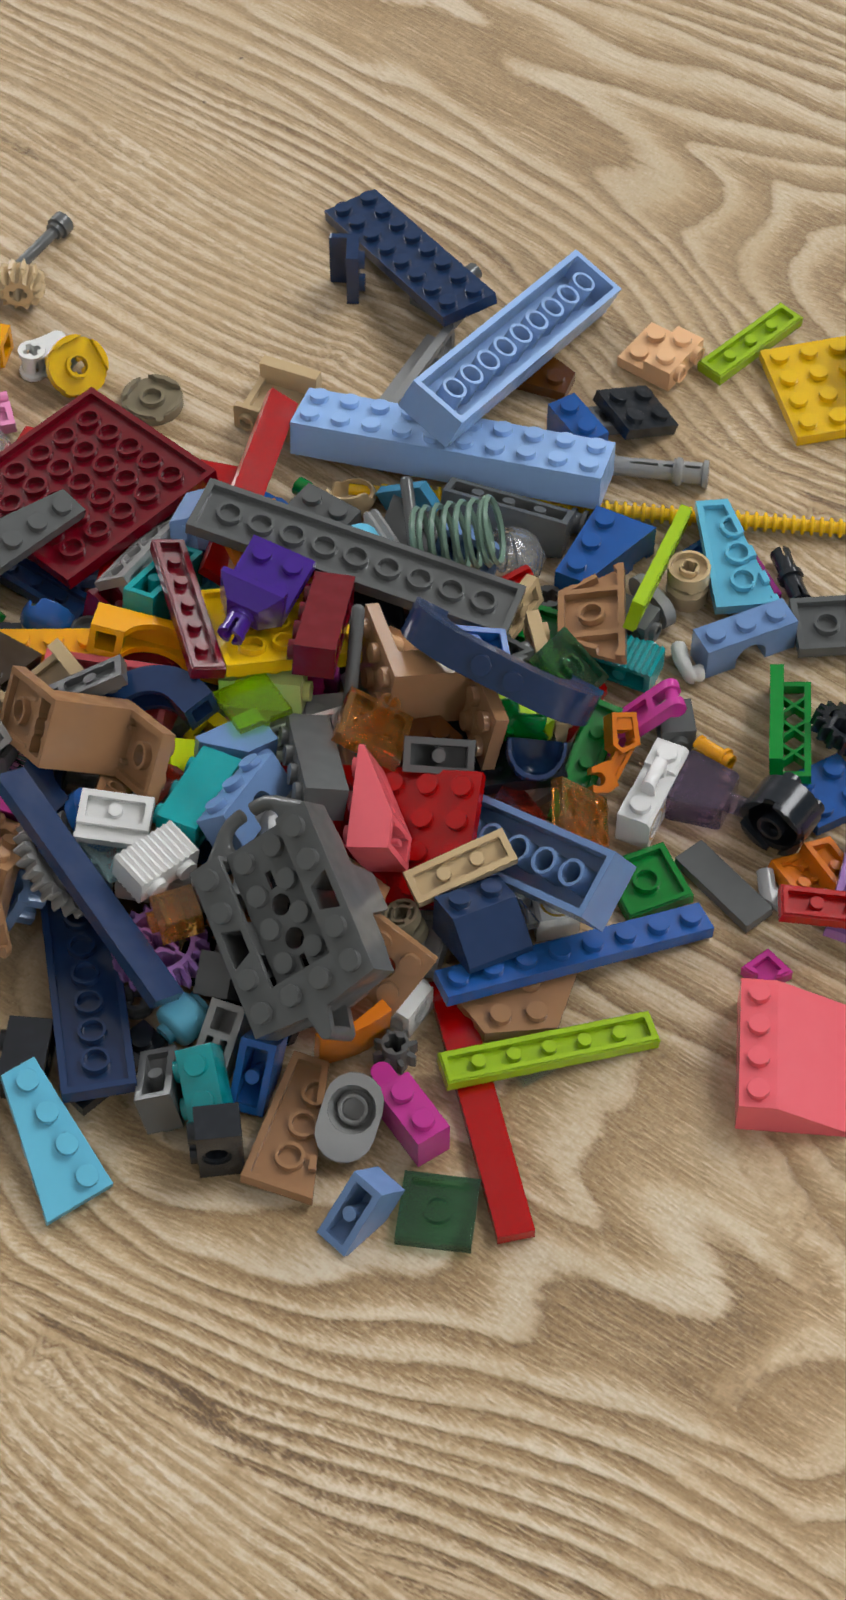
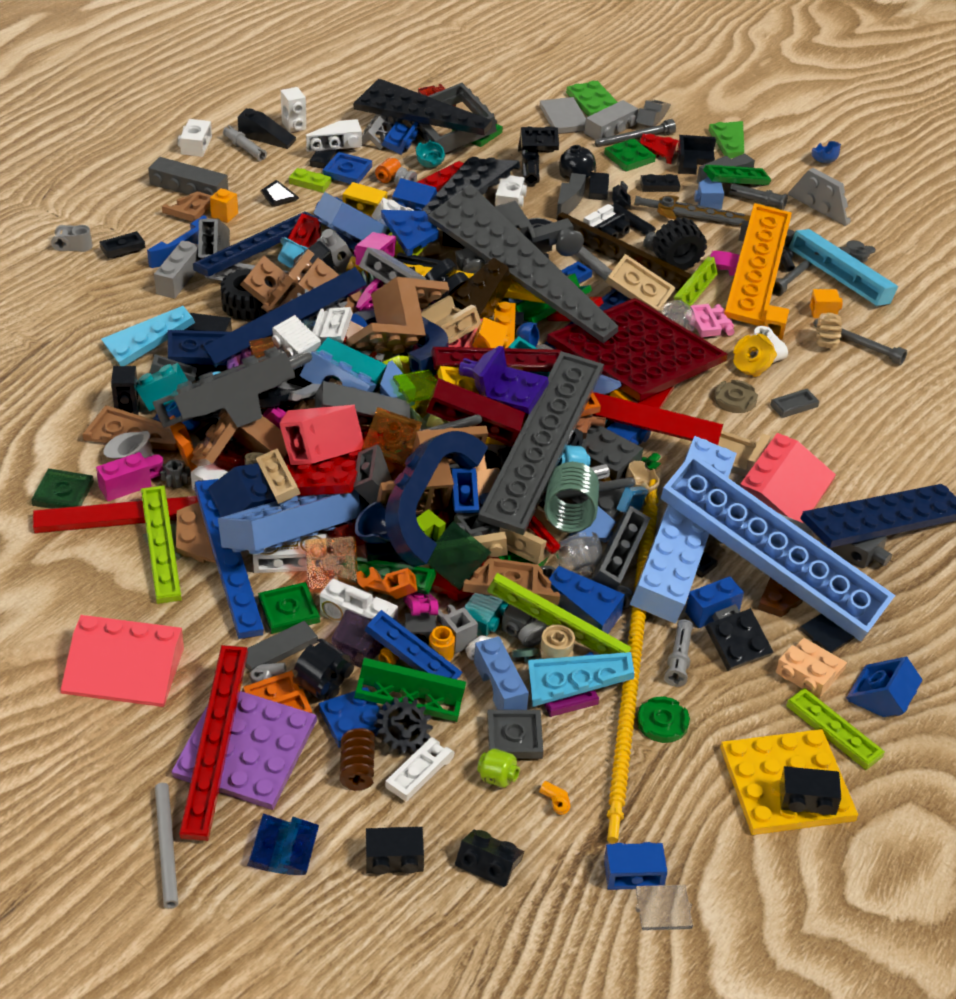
camera: 90 degrees right, 10 degrees down
(98, 679) = (434, 315): dark grey plate -> none
(164, 340) = (794, 403): none -> dark grey tile
(344, 354) = (788, 478): none -> coral slope
(346, 264) = (869, 480): dark blue bracket -> none
(360, 1209) = (71, 454): medium blue slope -> none
(599, 341) = (826, 633): none -> black piece
(677, 666) = (462, 626): none -> light grey brick
(687, 292) = (886, 687): none -> blue slope
(688, 618) = (525, 652): none -> sand green piece
(705, 696) = (443, 642): none -> light orange brick
(726, 722) = (409, 647): none -> blue plate
(766, 967) = (204, 663): dark pink tile -> none
(767, 490) = (663, 719): none -> green tile
(788, 573) = (568, 719): black pin -> none

